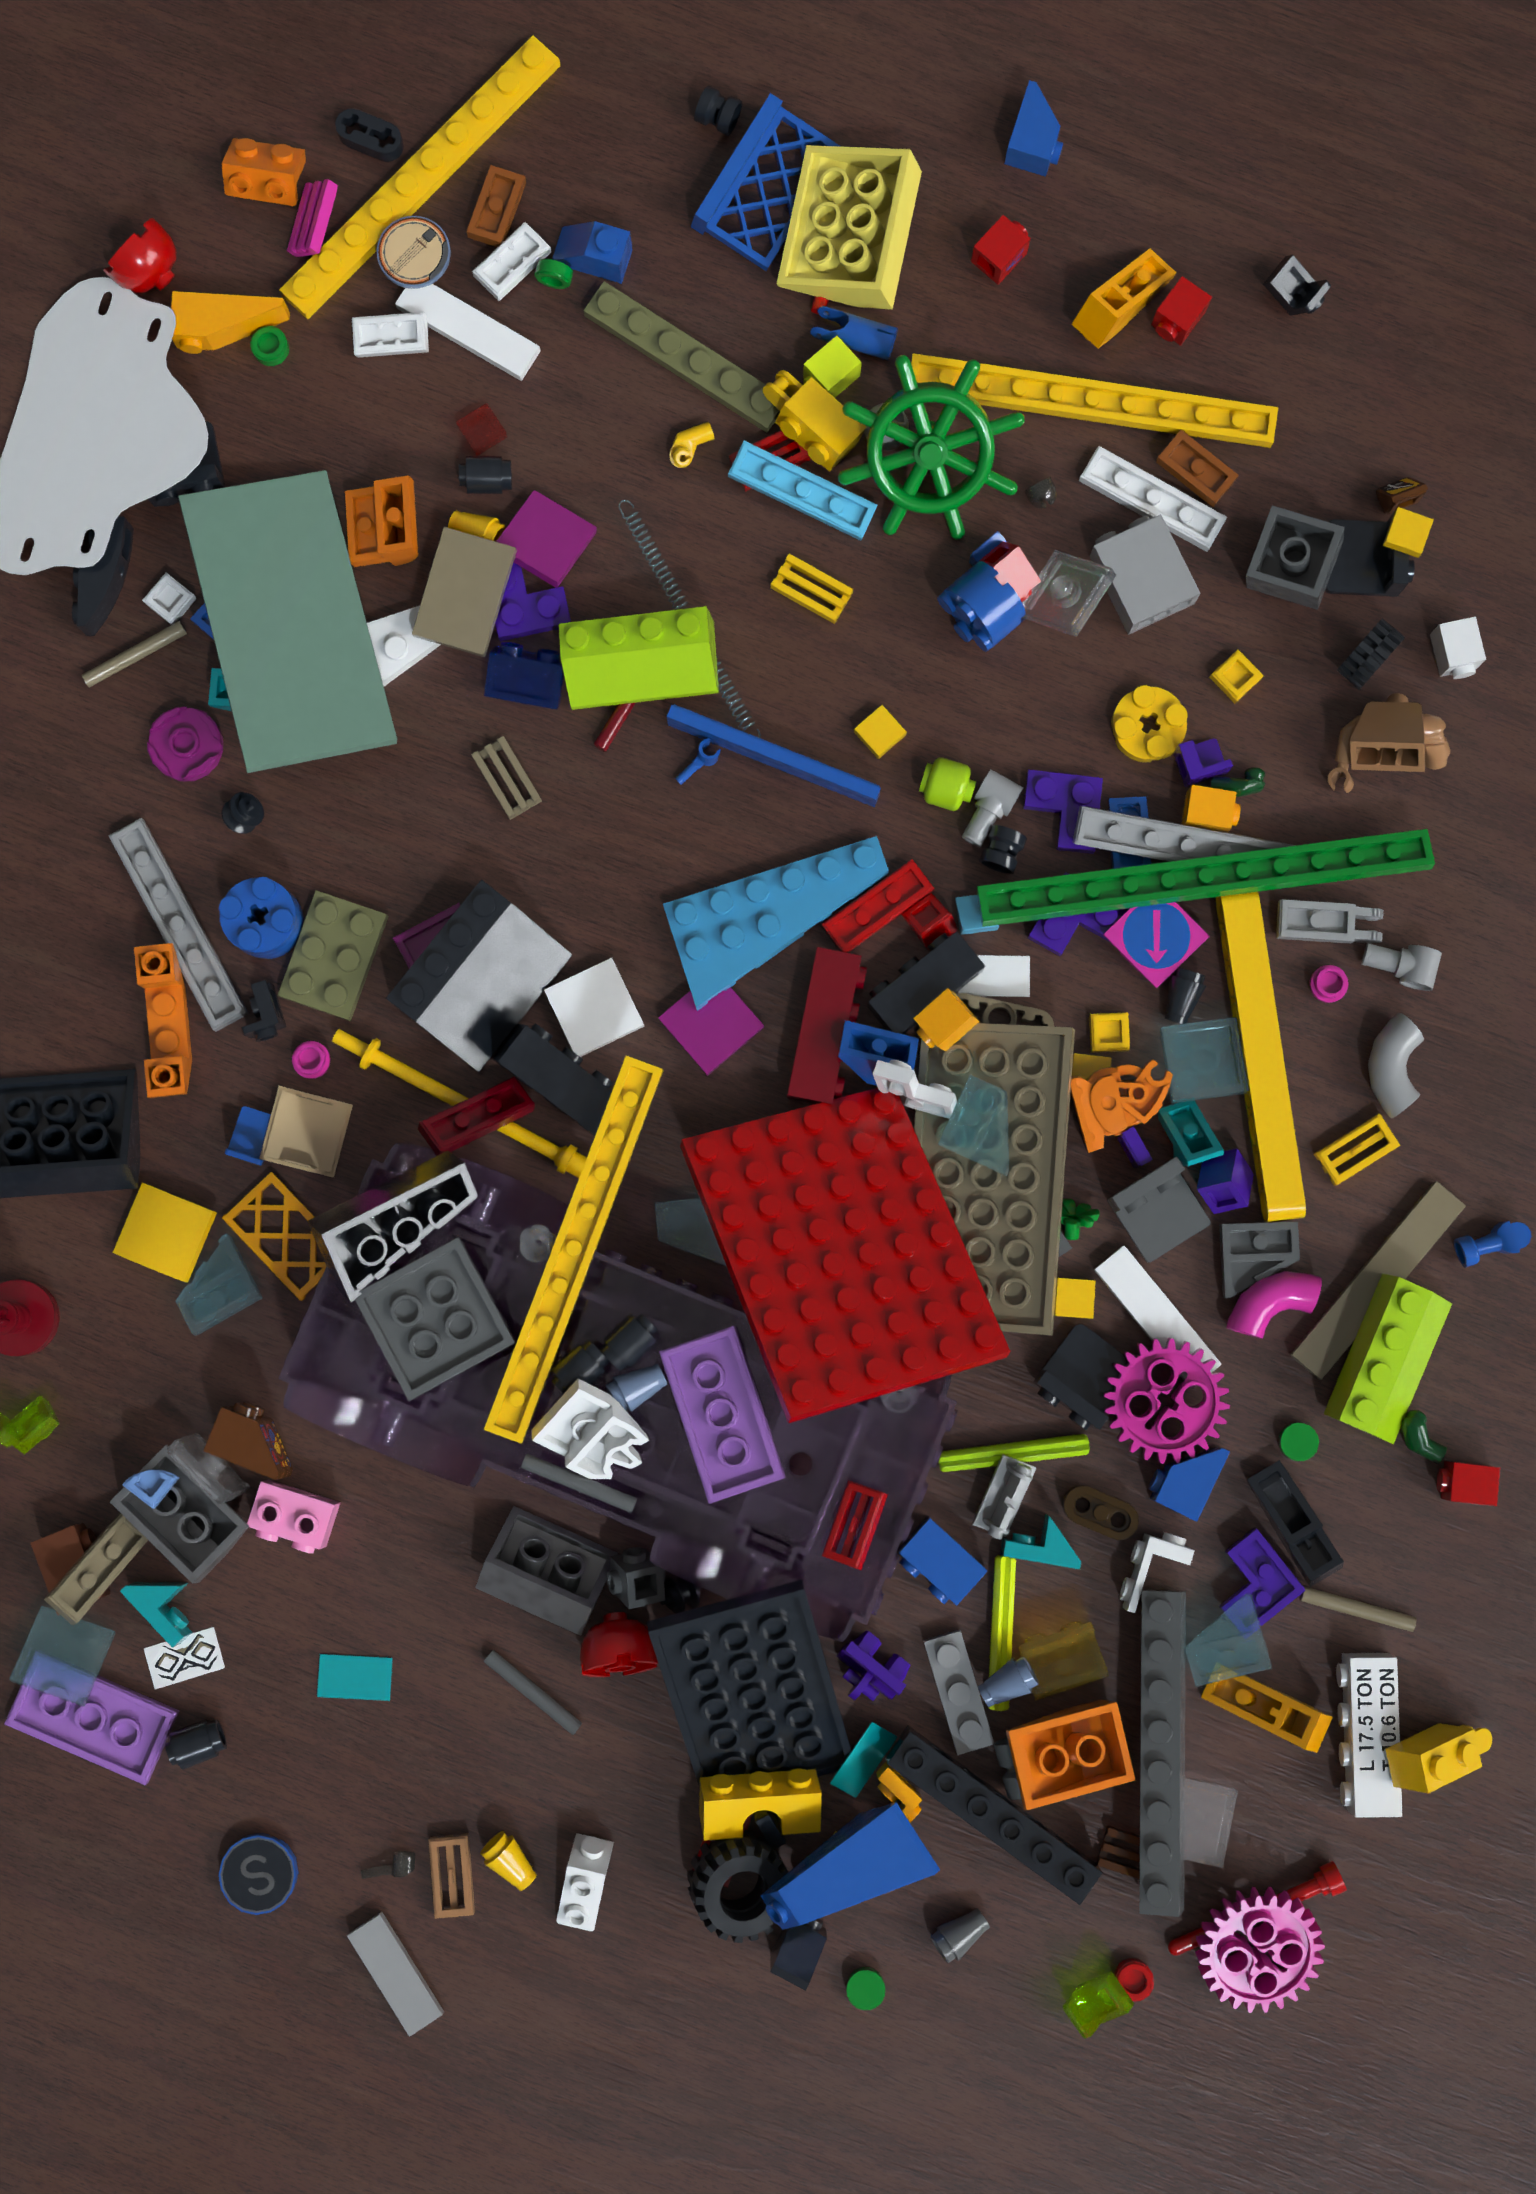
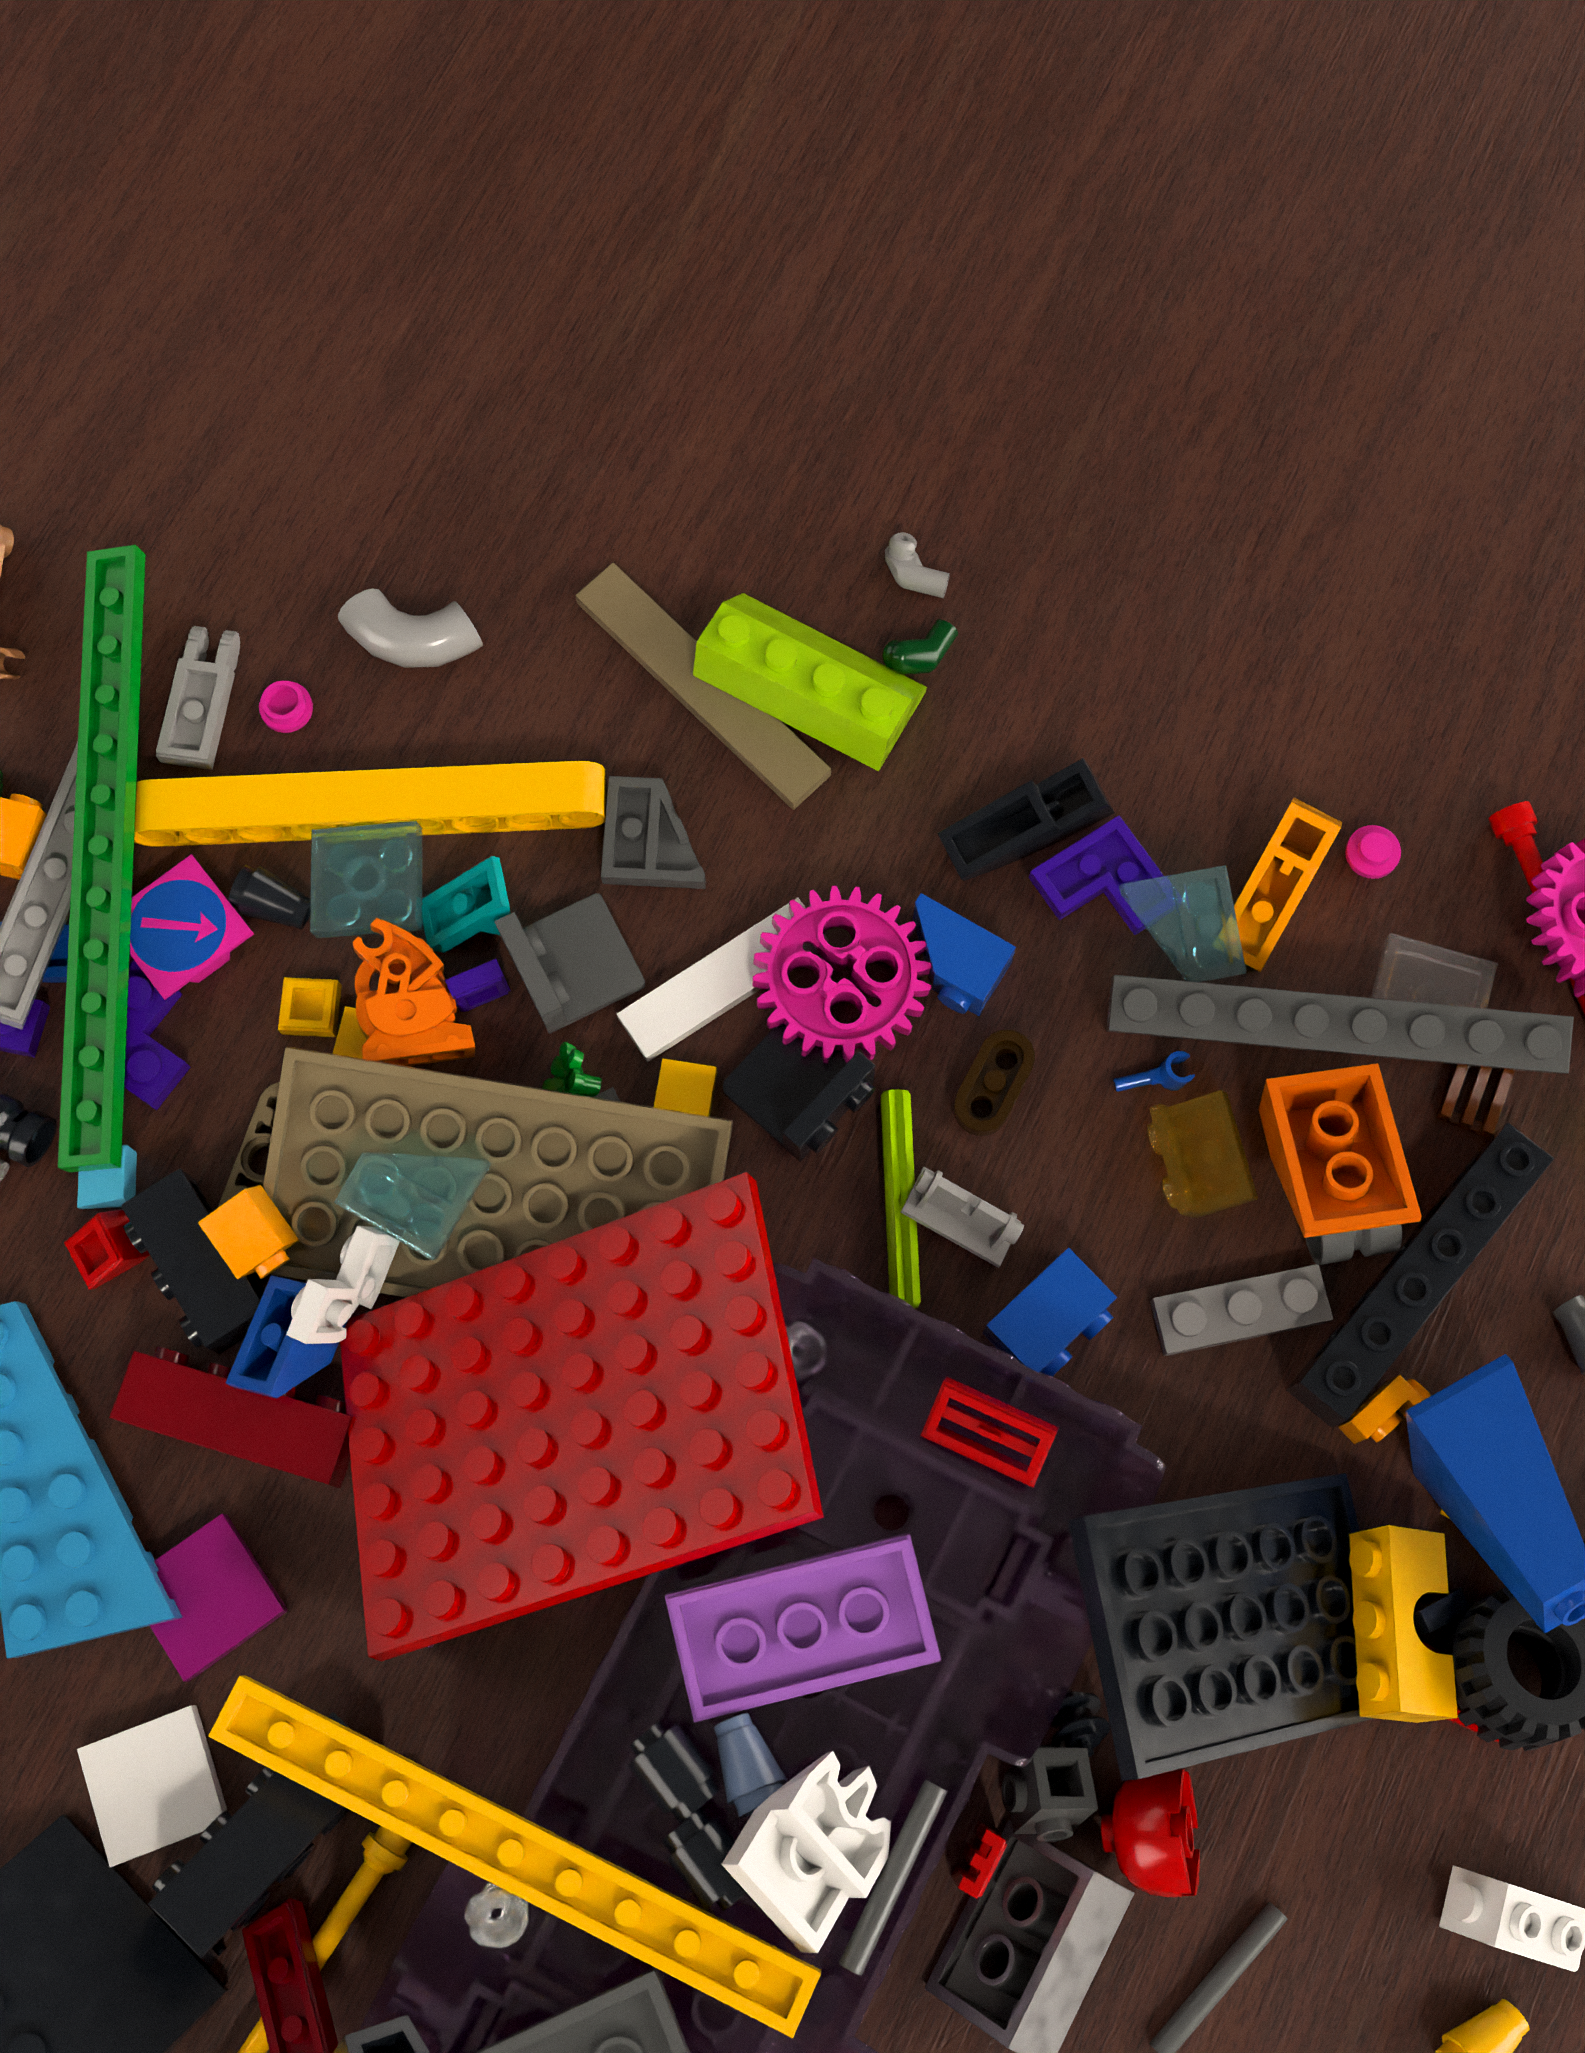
camera: 85 degrees left, 10 degrees down
(591, 1537) = (981, 1861): none -> red tile
(687, 1228) = (517, 1657): clear light blue wing -> none
(863, 1759) = (1337, 1459): teal sticker -> none
(878, 907) = (71, 1323): red tile -> none
(886, 1678) = (1218, 1417): dark purple hips -> none
(1001, 977) = (207, 1150): white sticker -> none
(1002, 1617) = (1158, 1239): neon yellow axle -> none
(1009, 1682) = (1232, 1232): sand blue cone -> none
(1052, 1549) = (1041, 1154): teal slope -> none
(1117, 1626) = (1161, 1075): none -> blue hand
(1169, 1546) = (1062, 1029): white bracket -> none
(1225, 1182) = (542, 867): dark purple panel -> none
(1271, 1296) = (709, 821): dark pink cylinder -> none
(1298, 1441) = (914, 808): green tile -> none
(1298, 1776) = (1373, 851): none -> dark pink plate
(1329, 1166) = (538, 730): yellow tile -> none
(1358, 1609) = (1148, 752): dark tan bar -> none
(1370, 1727) = (1319, 751): white brick -> none
(1414, 966) = (276, 596): light grey pin -> none
(1437, 1756) = (1354, 665): yellow brick -> none
(1469, 1483) = (986, 593): red brick -> none
(1485, 1423) = (908, 569): none -> light grey arm
(1504, 1238) = (663, 522): blue leg -> none

